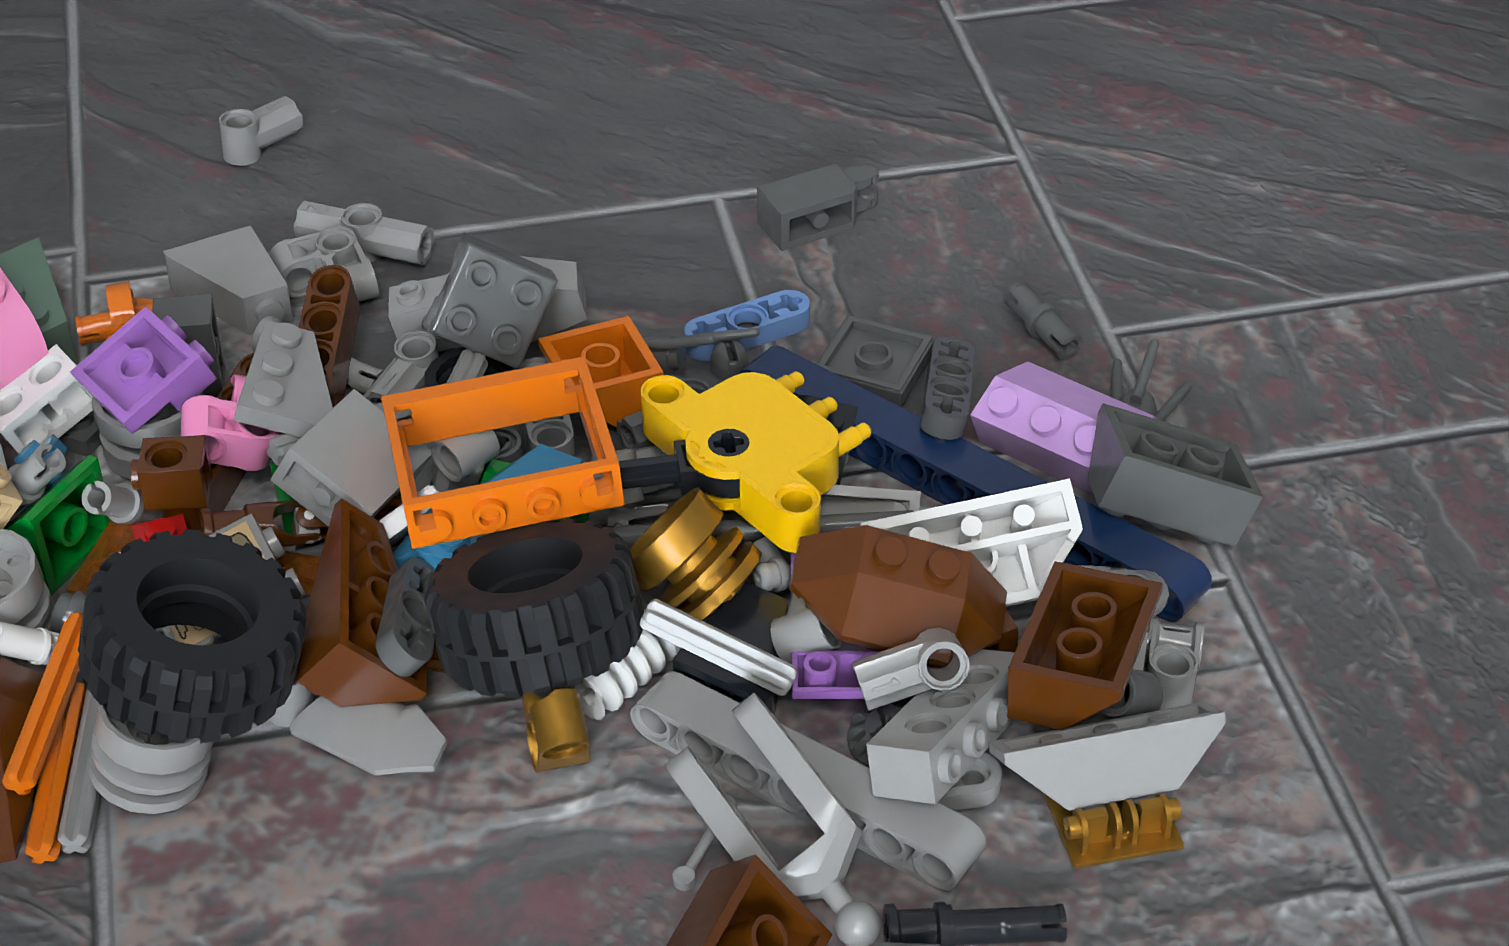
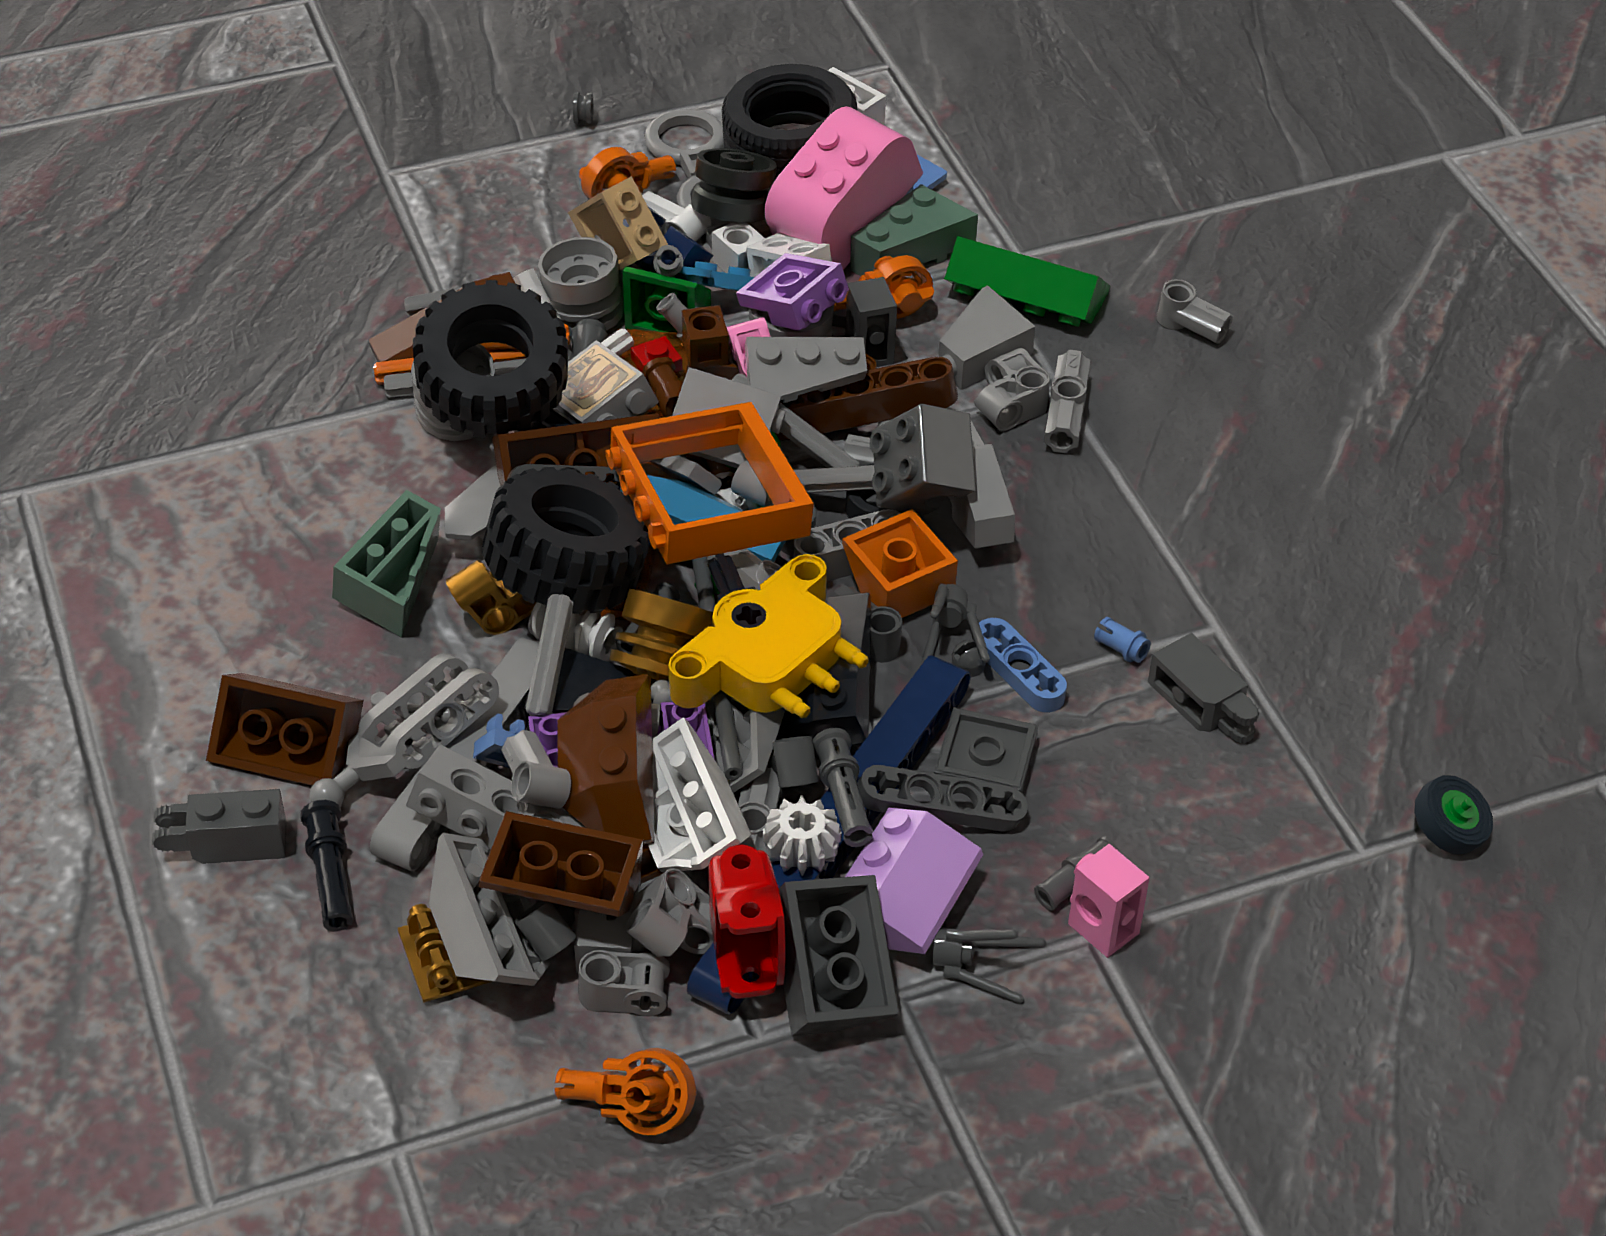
camera: 80 degrees right, 5 degrees up
(161, 223) = (1026, 280): none -> green slope
(463, 832) = (389, 563): none -> sand green wedge
(740, 244) = (1131, 644): none -> medium blue pin
(832, 716) = (489, 745): none -> medium blue tile
(901, 467) = (794, 761): none -> dark grey piece
(928, 435) = (840, 773): none -> dark grey pin
(1001, 85) = (1453, 814): none -> black wheel
(1013, 464) = (802, 835): none -> white gear
(1103, 286) = (1108, 899): none -> bright pink brick
(1158, 495) = (746, 921): none -> red piece
(1316, 645) = (636, 1089): none -> orange pin

